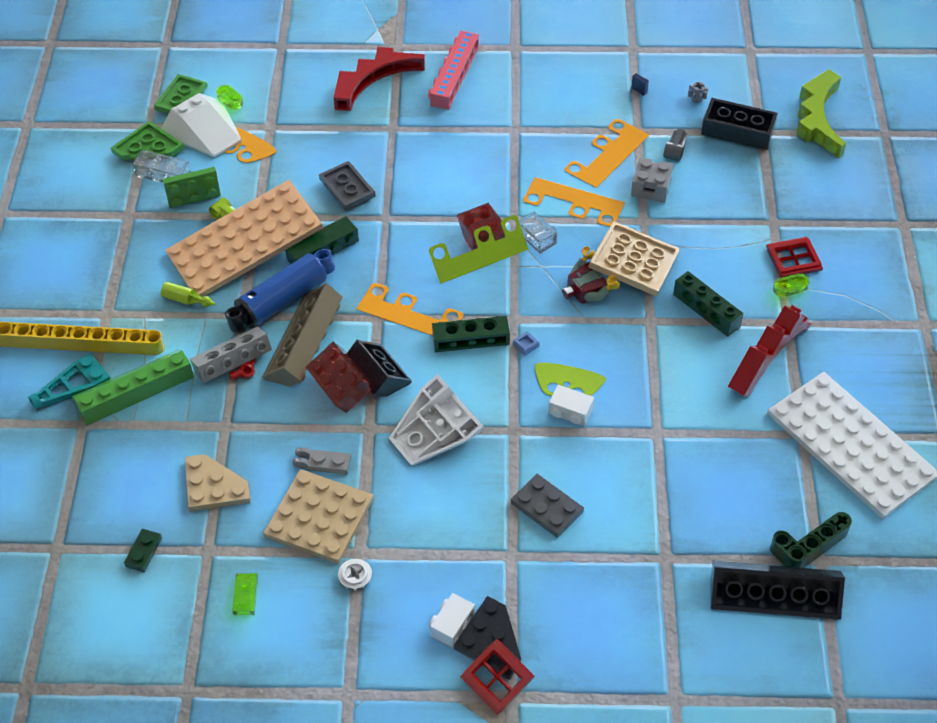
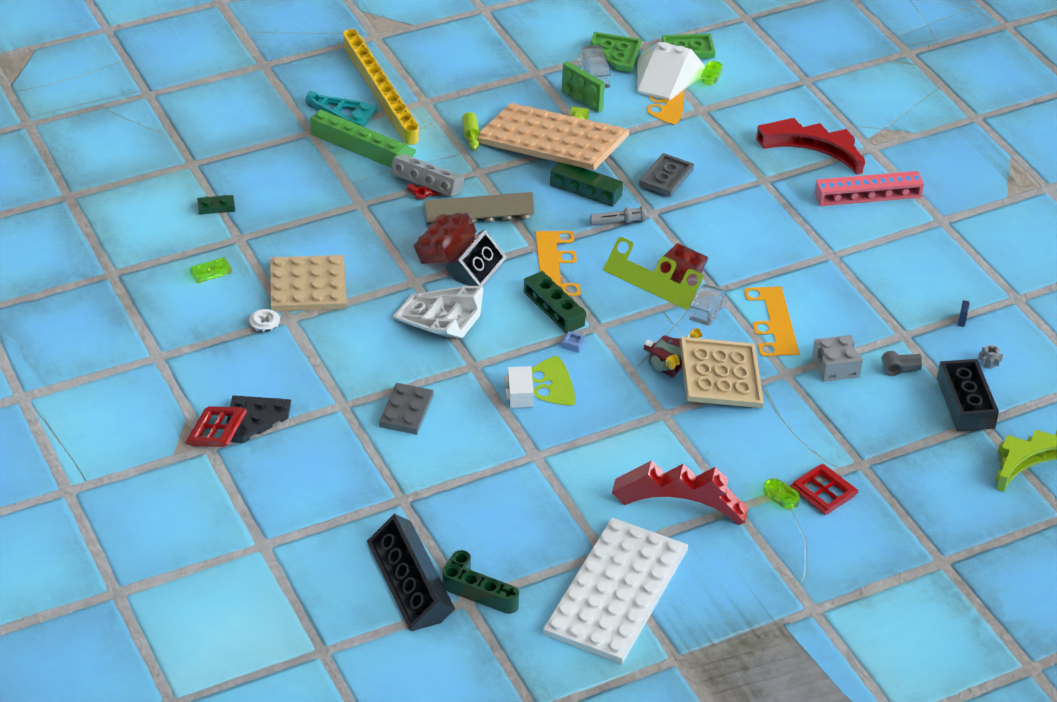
camera: 60 degrees right, 10 degrees down
(213, 484) = (298, 216): tan plate -> none
(280, 290) = (512, 175): blue piece -> none
(322, 461) = (362, 266): light grey hinge -> none
(384, 235) = (626, 215): none -> light grey pin
(451, 620) = (254, 383): white brick -> none
(613, 155) = (856, 328): light orange piece -> none
(708, 303) = (707, 439): dark green brick -> none

